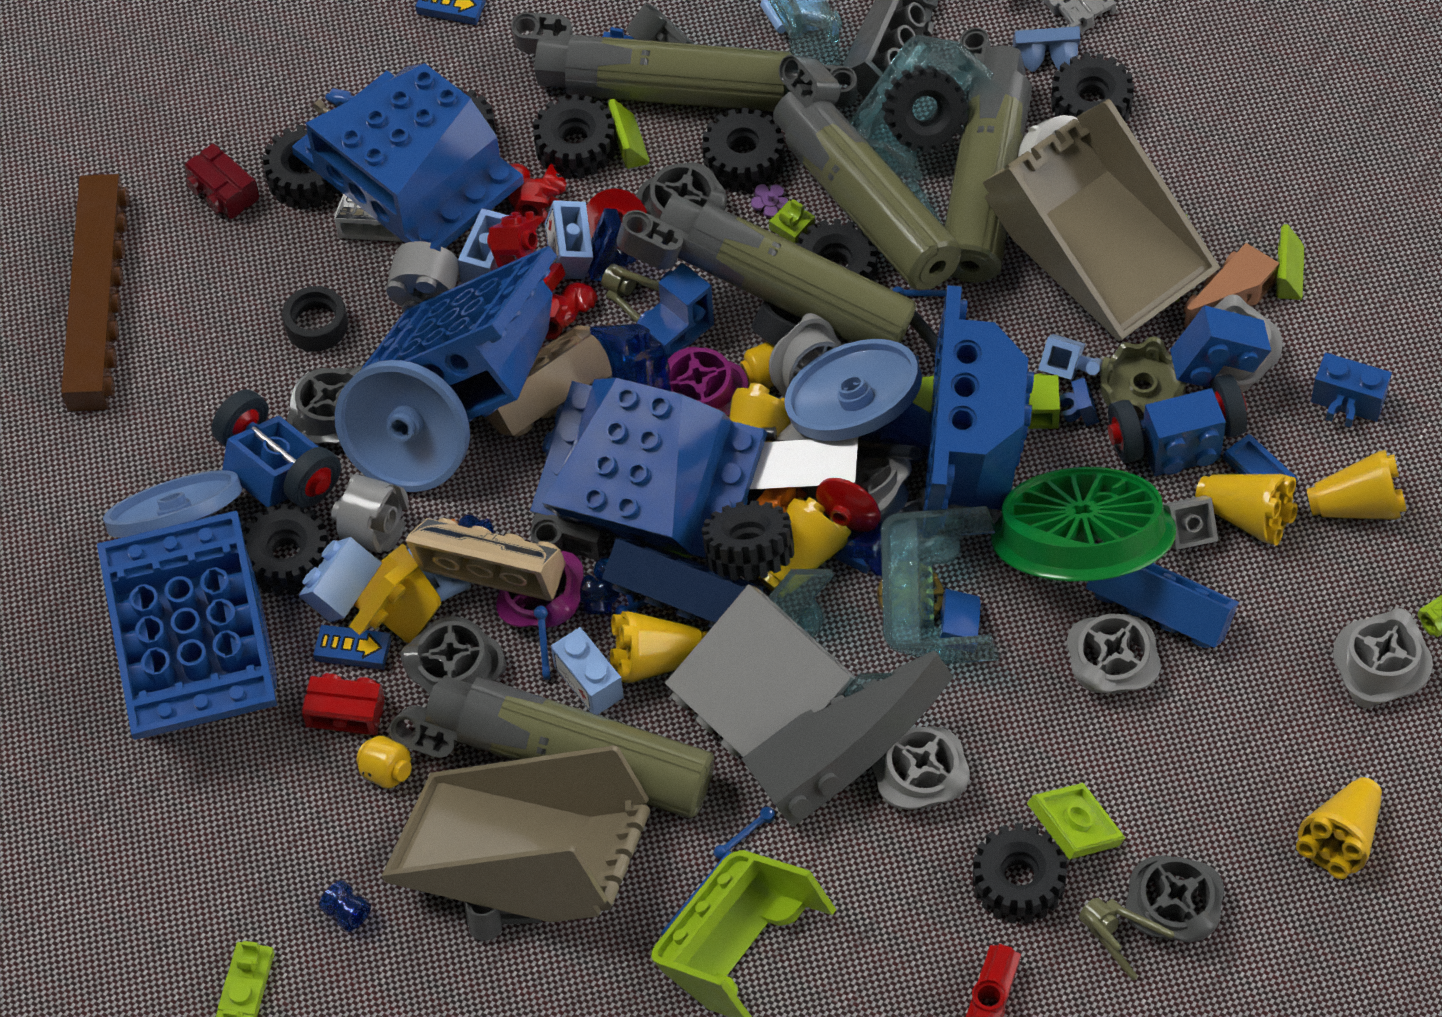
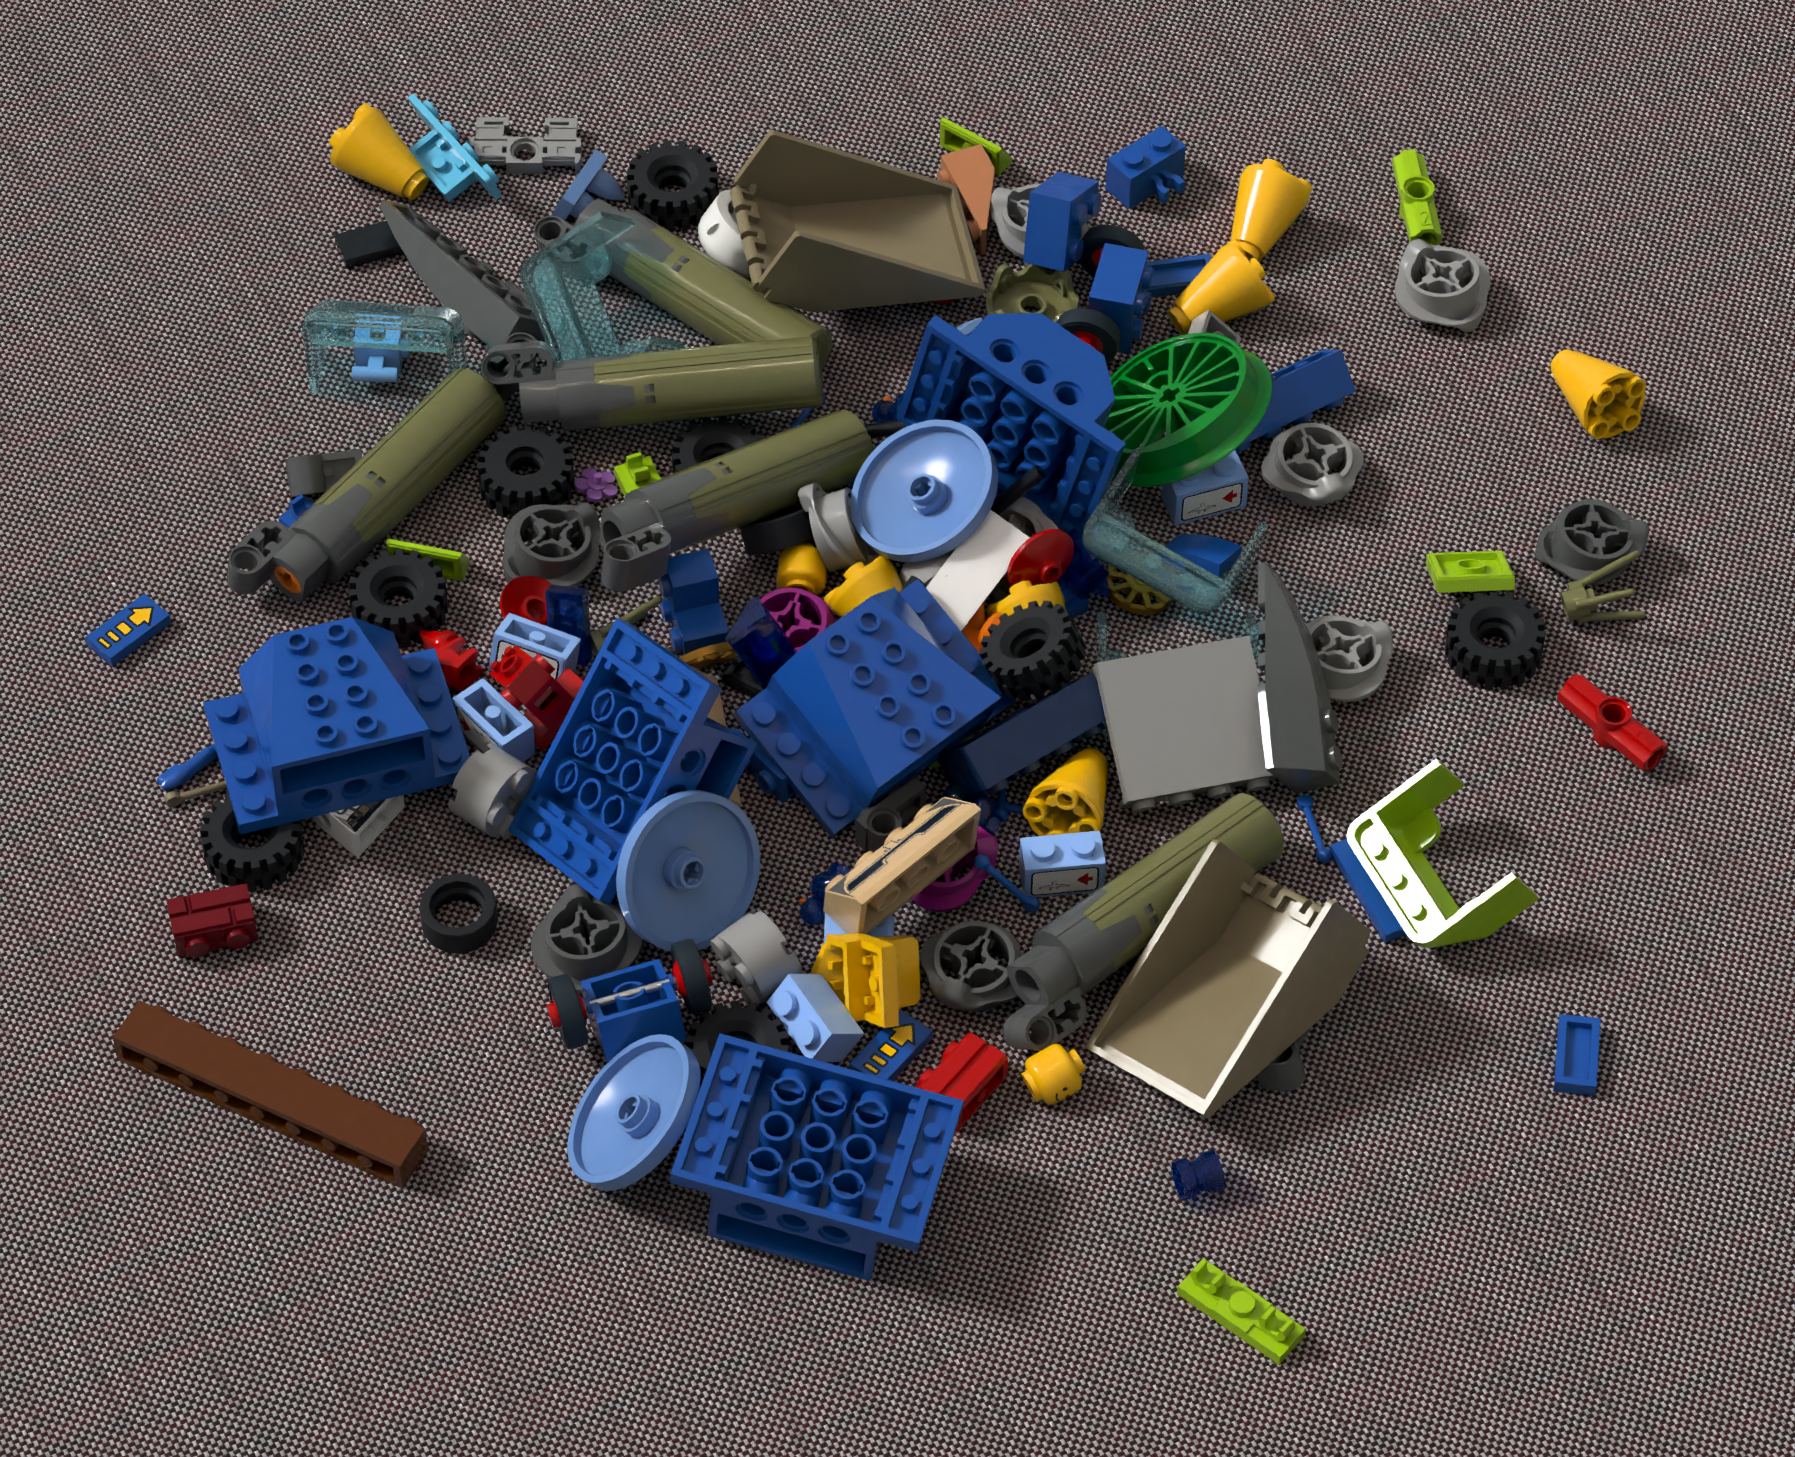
camera: 65 degrees left, 5 degrees down
(936, 130) = (633, 295): black tyre -> none
(1038, 597) = (1209, 492): none -> light blue brick

